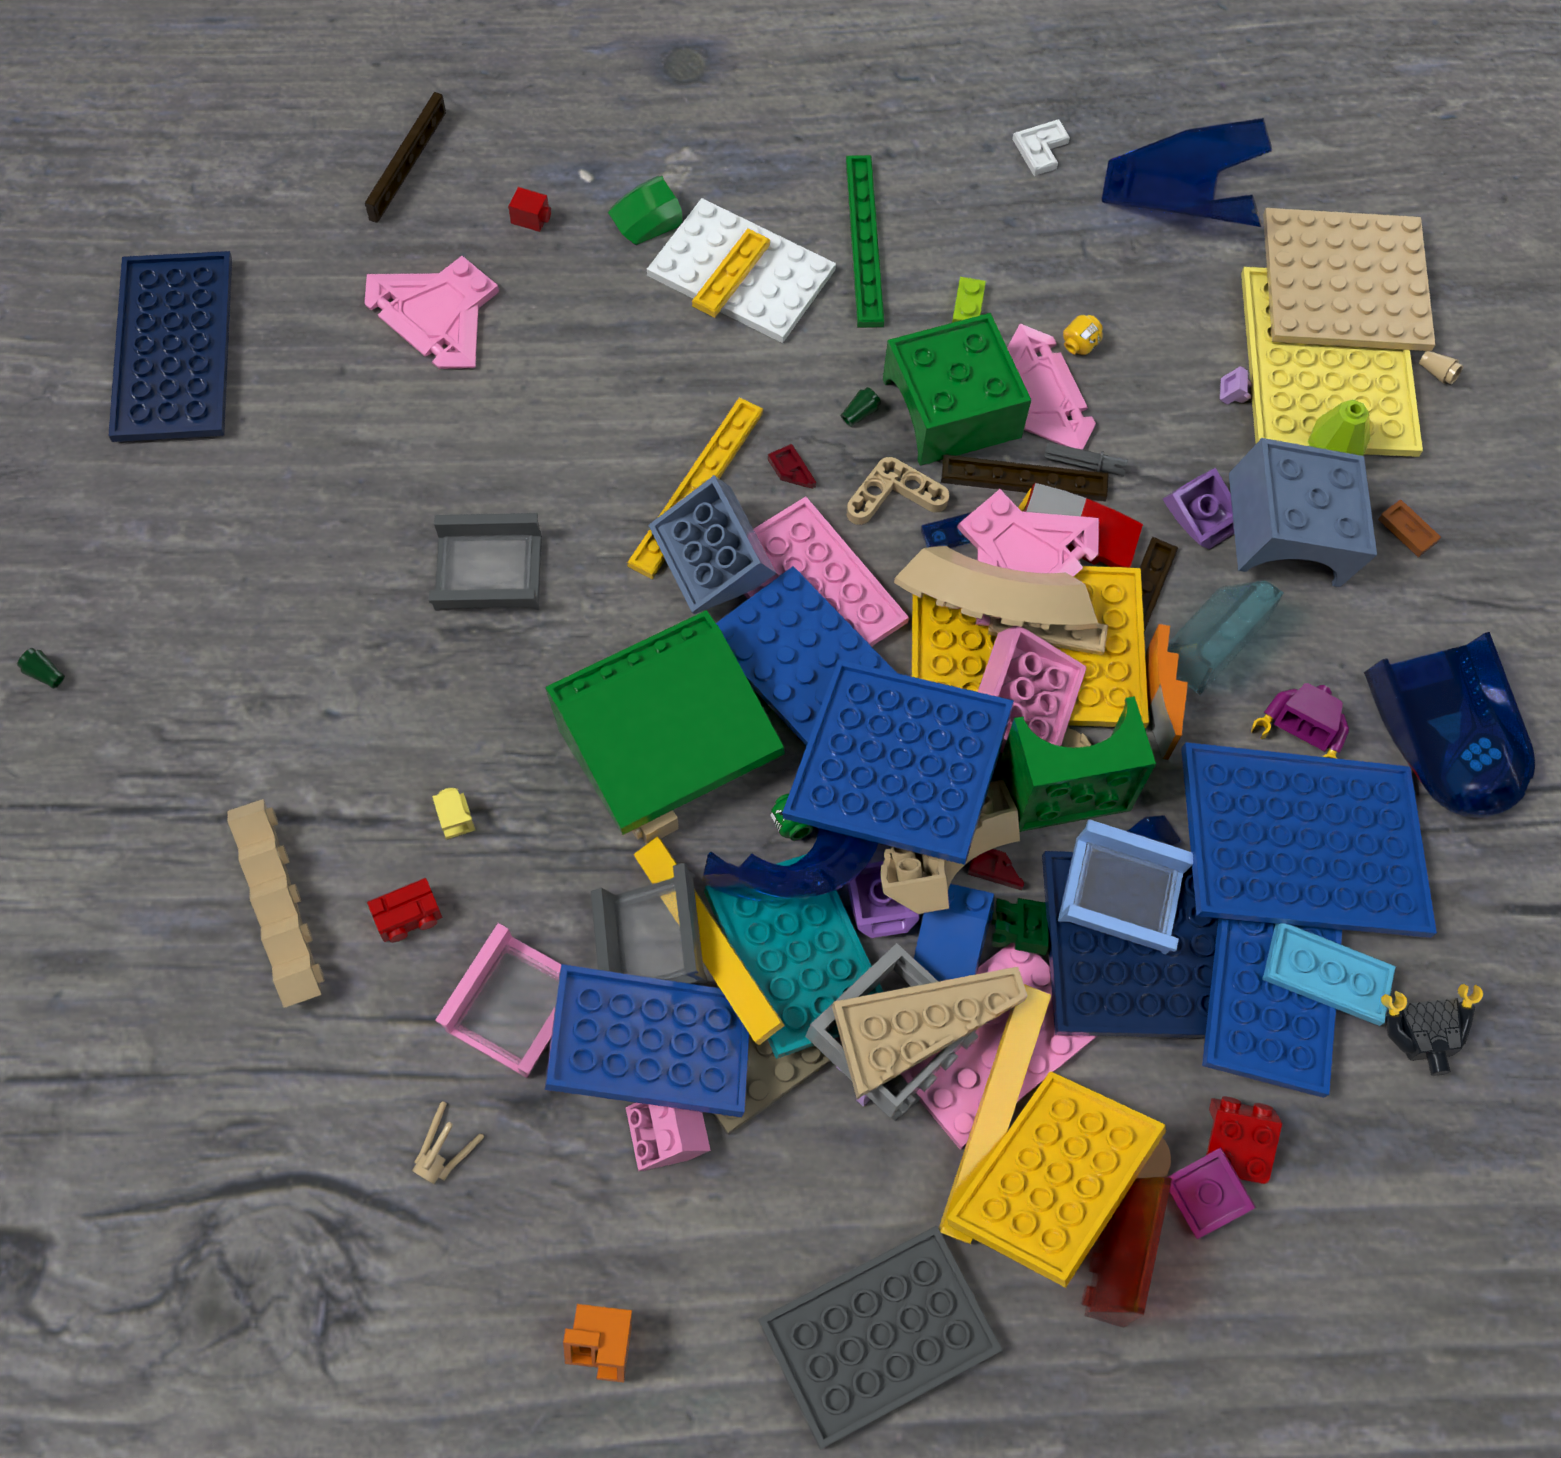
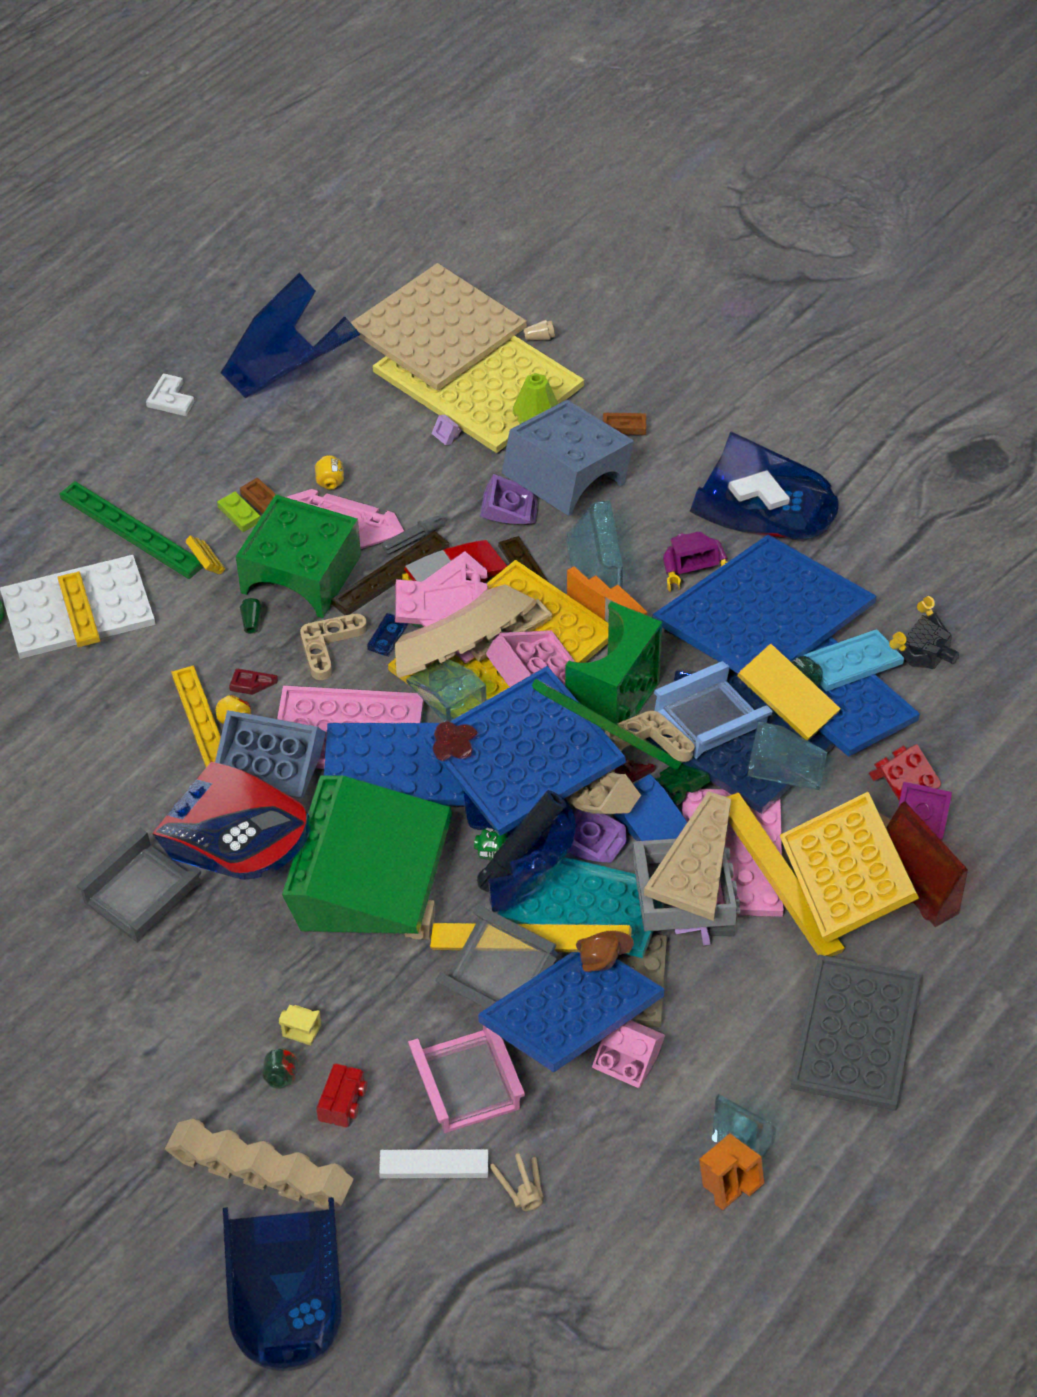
camera: 45 degrees left, 15 degrees down
(164, 1023) = (283, 1286): none -> clear blue windscreen
(390, 835) = (279, 1068): none -> clear green head
(402, 1051) = (434, 1163): none -> white tile
(598, 585) = (233, 824): none -> windscreen
(661, 1315) = (743, 1125): none -> clear light blue slope
(725, 1021) = (602, 949): none -> dark orange piece
(742, 479) = (231, 703): none -> yellow head
(803, 840) = (522, 837): none -> black piece
(849, 693) = (454, 743): none -> clear red plate
(893, 319) = (205, 555): none -> yellow tile
(927, 637) = (448, 688): none -> clear light blue slope
(983, 809) = (605, 723): none -> green tile
(1002, 304) = (257, 494): none -> dark orange plate
(1044, 848) = (654, 725): none -> tan beam
(1138, 1008) = (786, 757): none -> clear light blue slope
(1212, 948) = (788, 692): none -> yellow tile
(1258, 943) = (809, 668): none -> clear green head
(1464, 710) = (759, 485): none -> white tile

